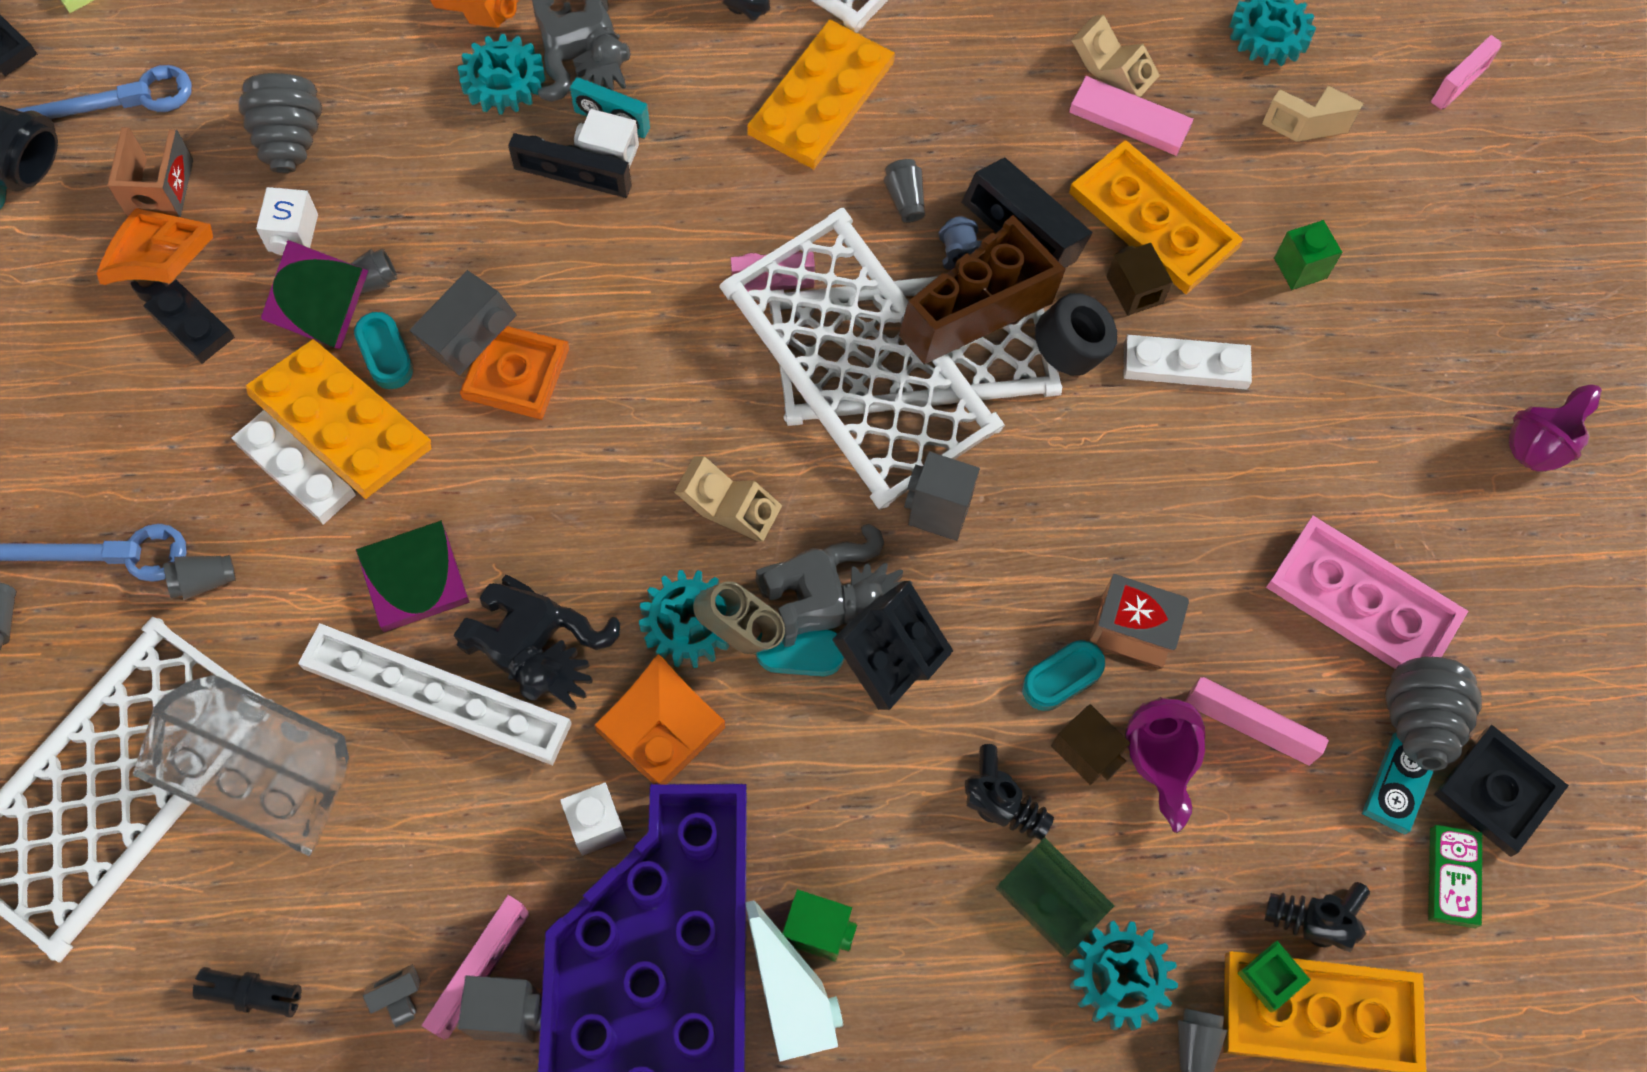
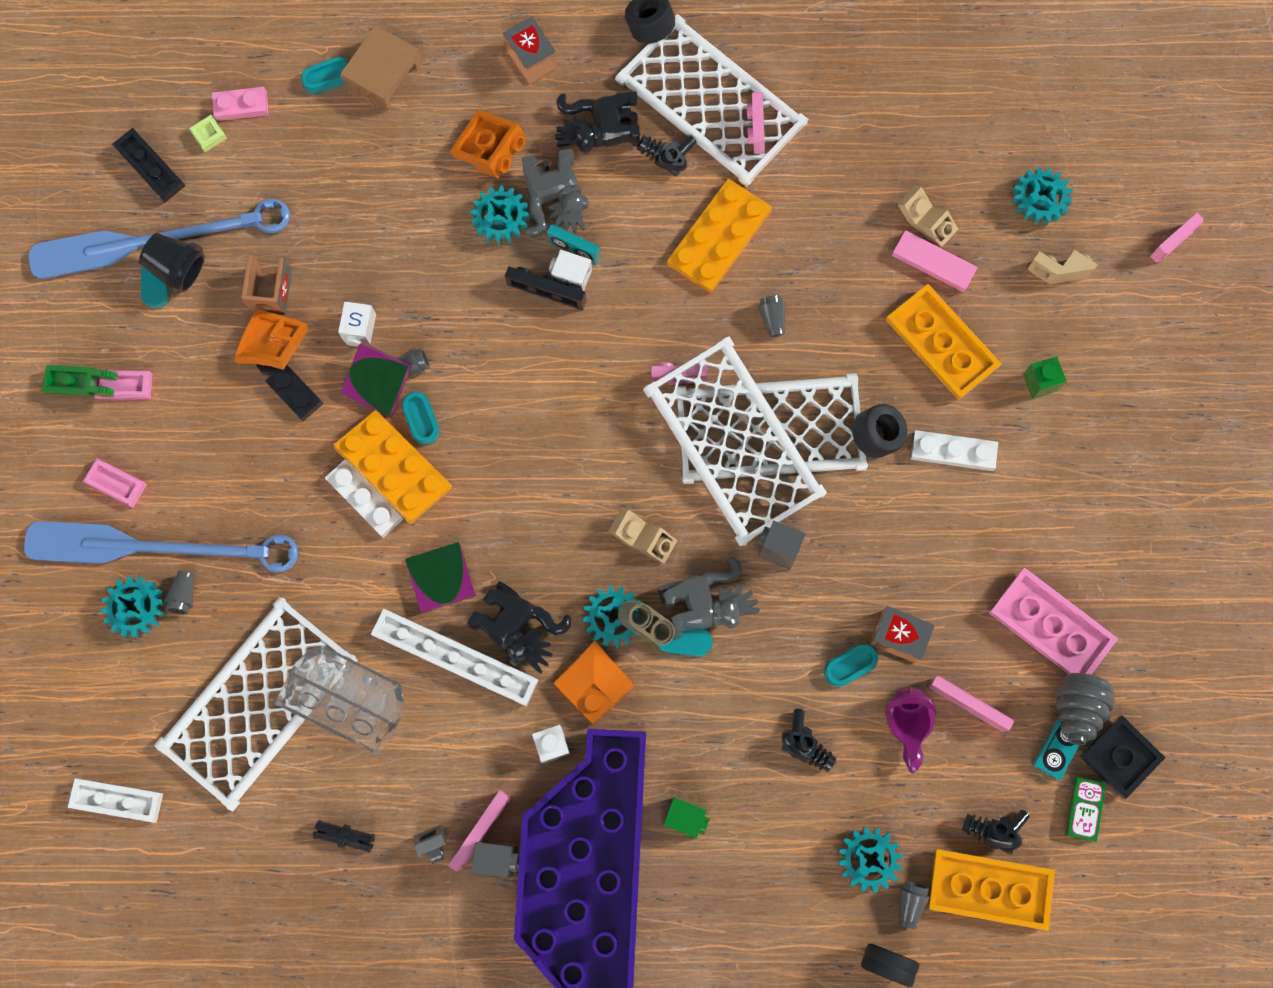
camera: 10 degrees right, 10 degrees up
(197, 574) = (306, 571): dark grey cone -> none
(281, 118) = (352, 248): dark grey piece -> none
(463, 322) = (473, 405): dark grey brick -> none
(516, 372) = (506, 436): orange tile -> none
(795, 997) = (669, 859): light aqua slope -> none
(893, 645) = (743, 642): black slope -> none
(959, 238) = (807, 357): sand blue brick -> none
(982, 293) = (820, 402): reddish brown wedge -> none
(1006, 191) = (853, 341): black brick -> none
(1054, 897) = (832, 808): clear green plate -> none
(1091, 746) = (864, 714): dark brown brick -> none
(1139, 278) = (926, 389): dark brown brick -> none
(1274, 976) = (961, 867): green tile -> none
(1553, 436) = (1193, 517): magenta piece -> none

